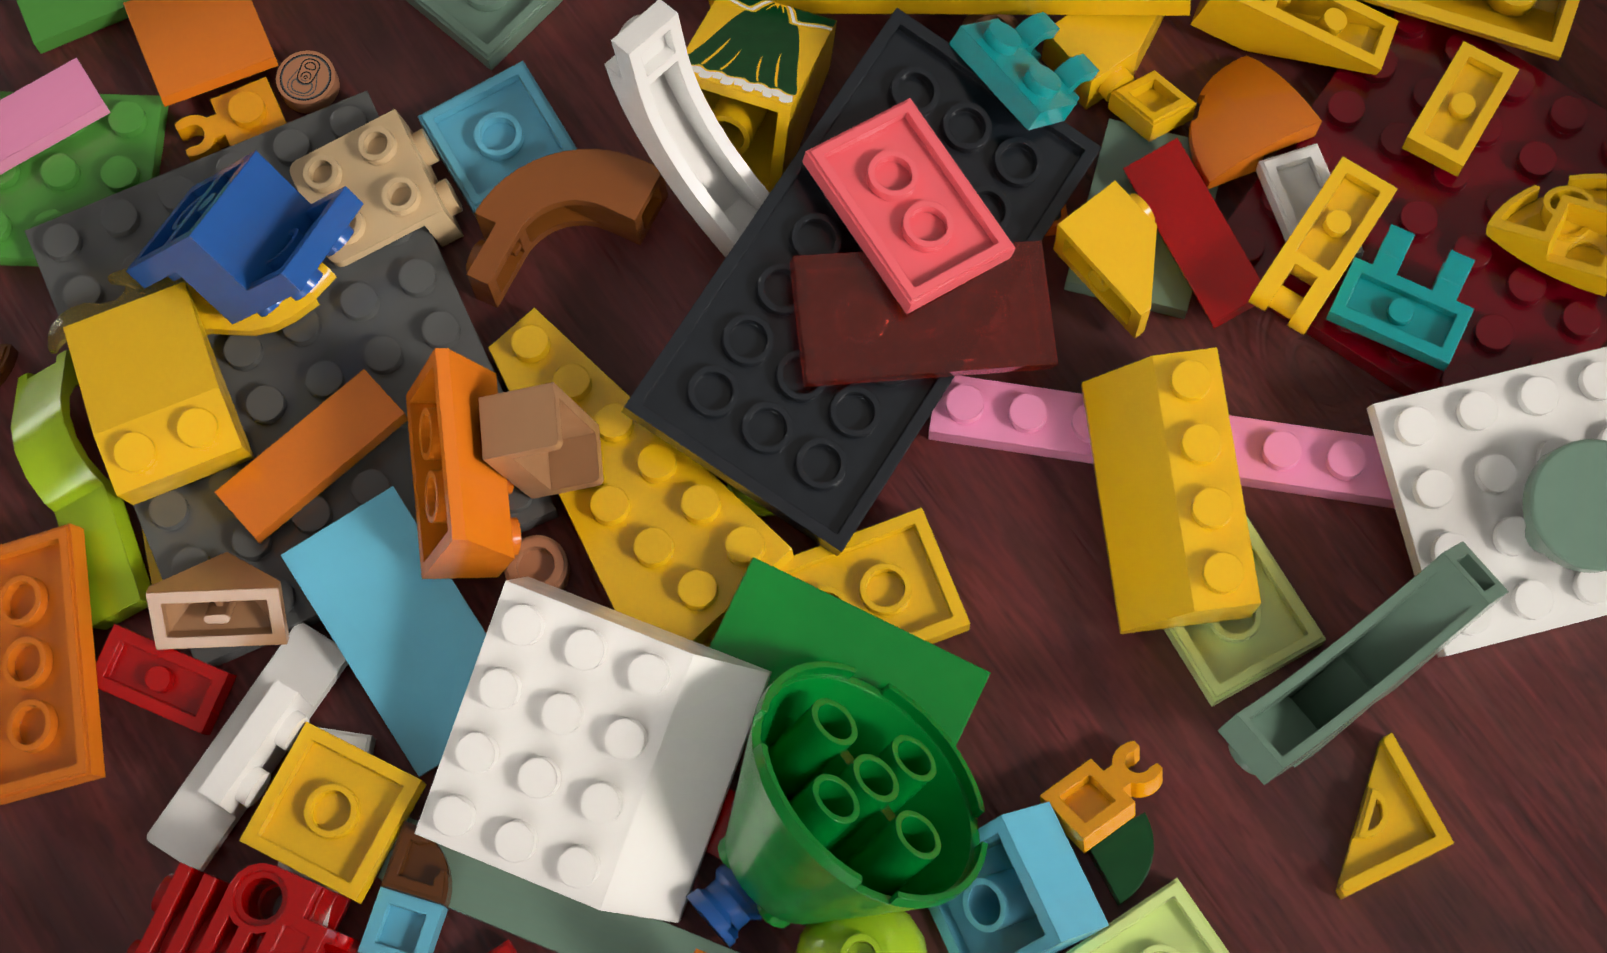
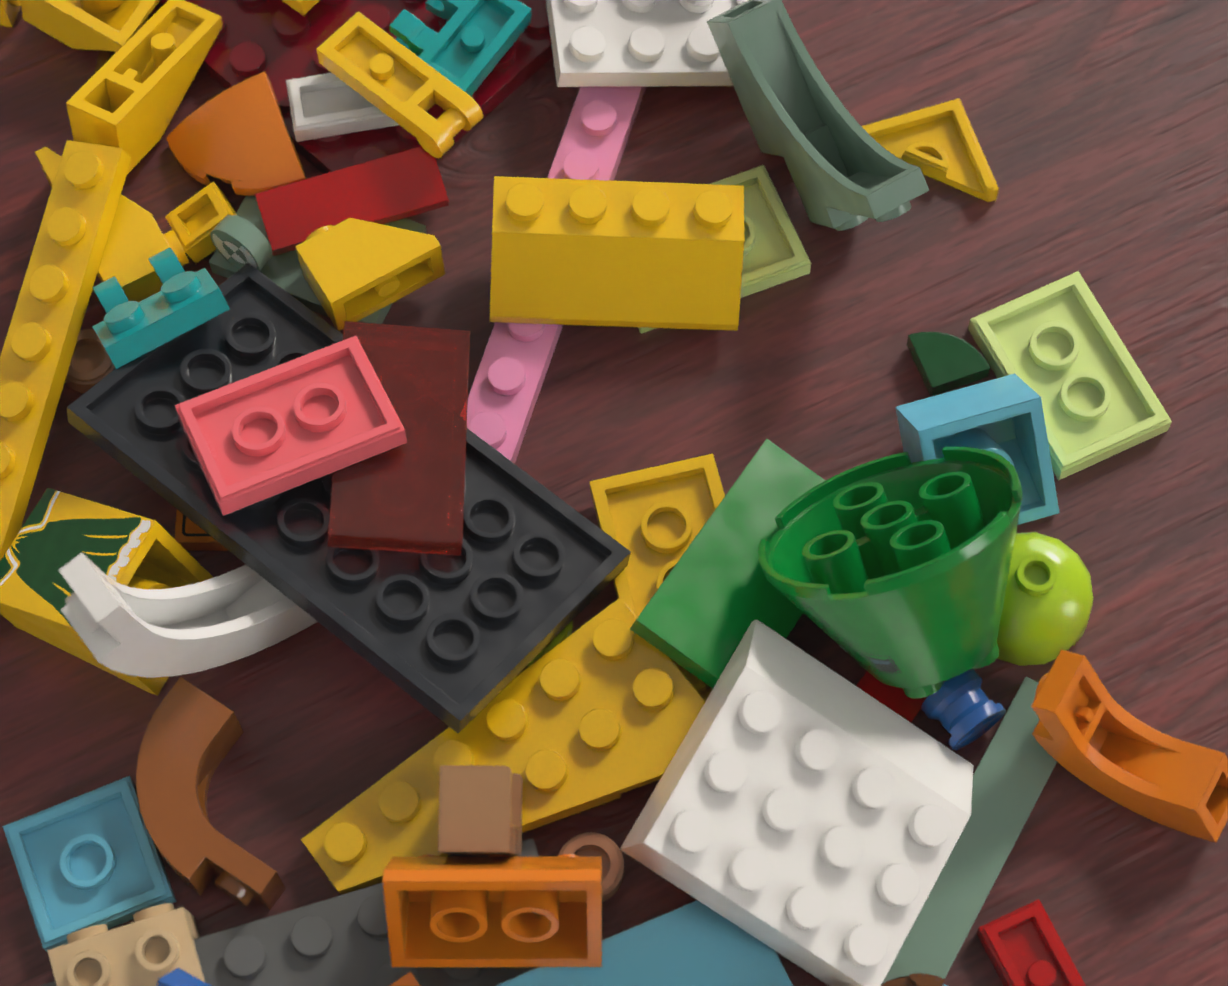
camera: 85 degrees left, 5 degrees down
(1099, 802) = (891, 371): light orange plate -> none
(1122, 138) = (241, 242): none -> sand green tile

